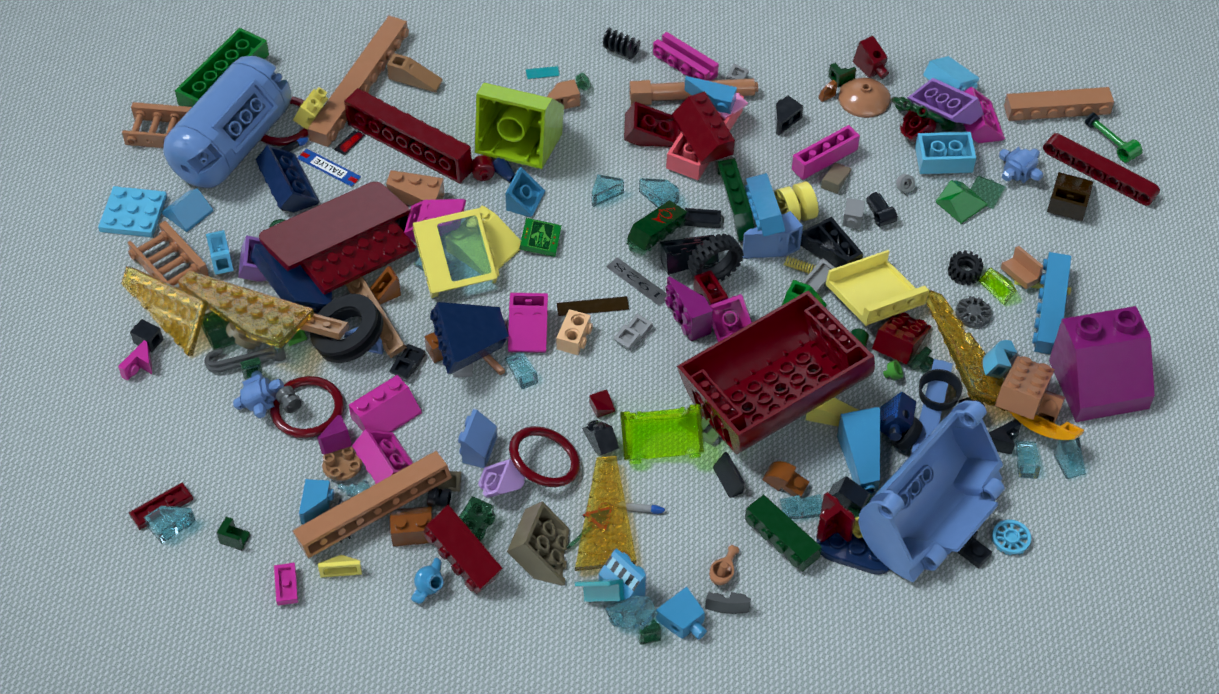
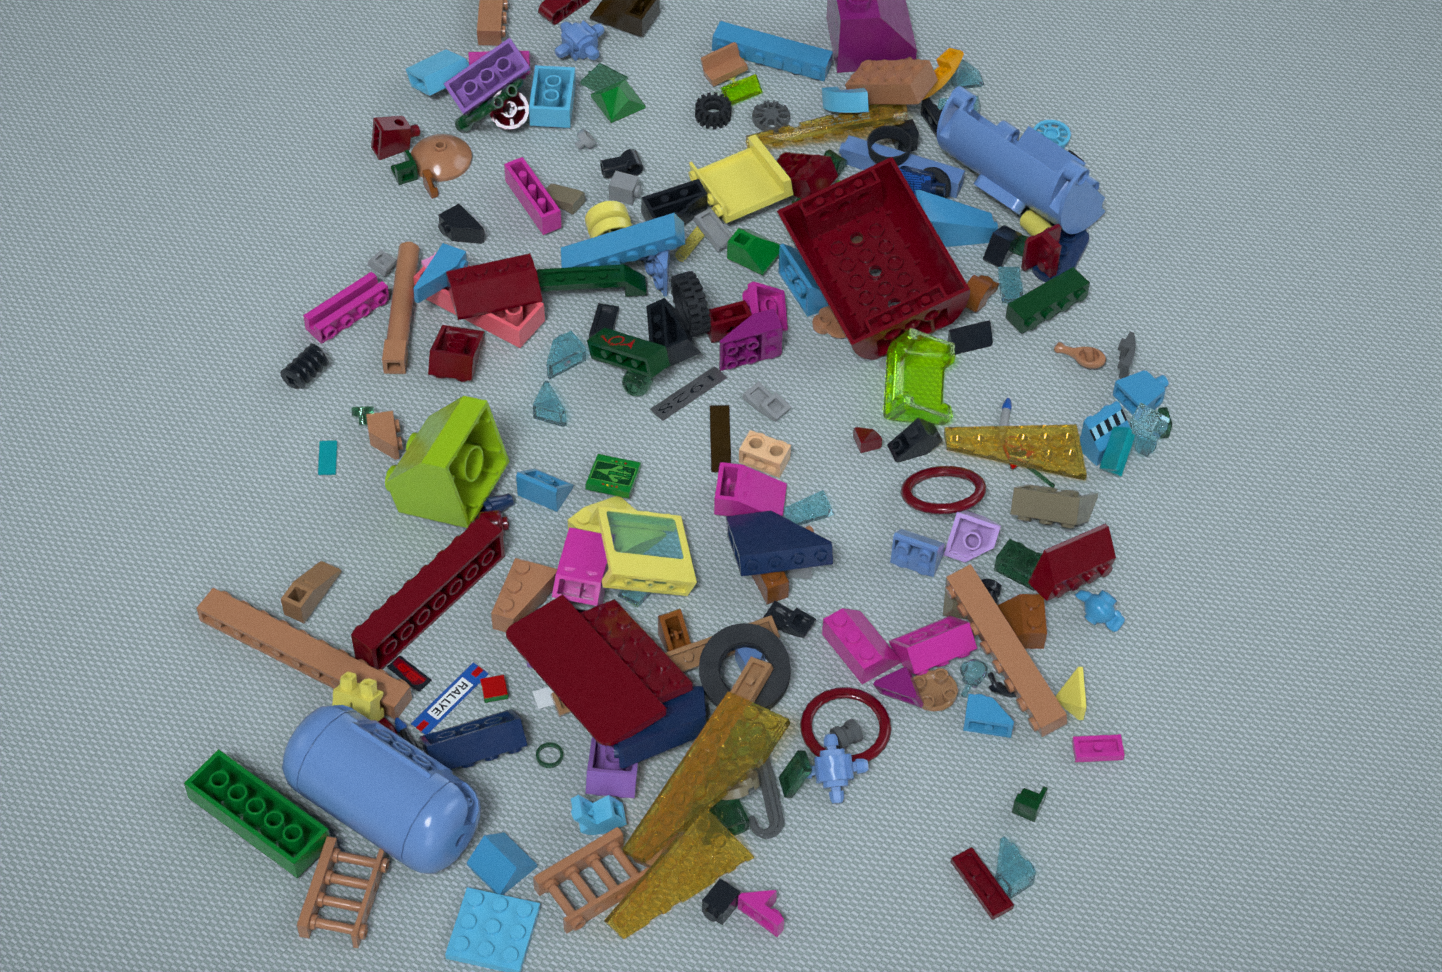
camera: 85 degrees left, 0 degrees up
(335, 188) = (494, 688): none -> red tile

